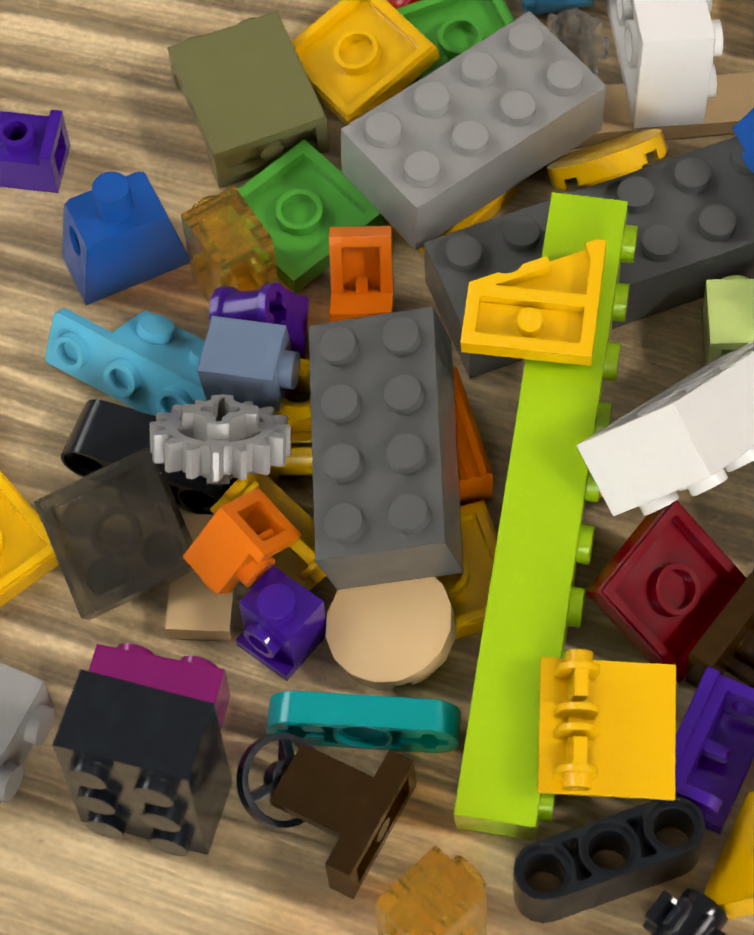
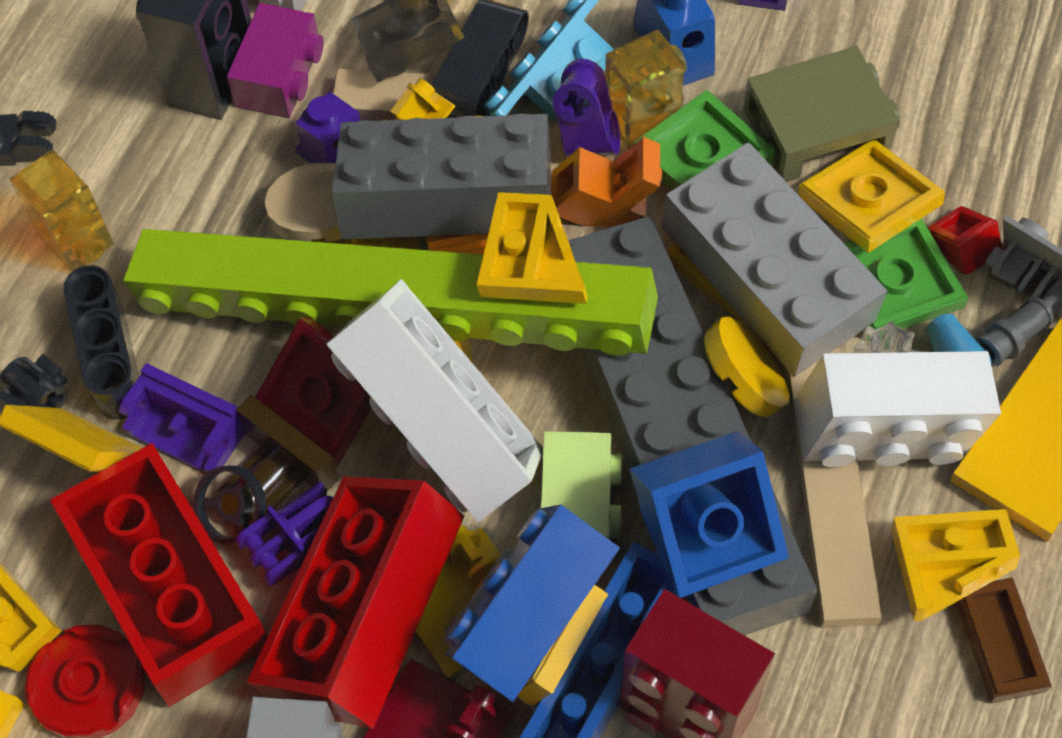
camera: 90 degrees right, 0 degrees up
(220, 439) = (456, 65): light grey gear -> none
(240, 542) = (371, 84): orange brick -> none
(248, 361) = (529, 81): sand blue brick -> none
(332, 798) = (162, 172): dark brown piece -> none
(366, 721) = (244, 181): teal beam -> none
(606, 727) = (181, 320): yellow hinge -> none

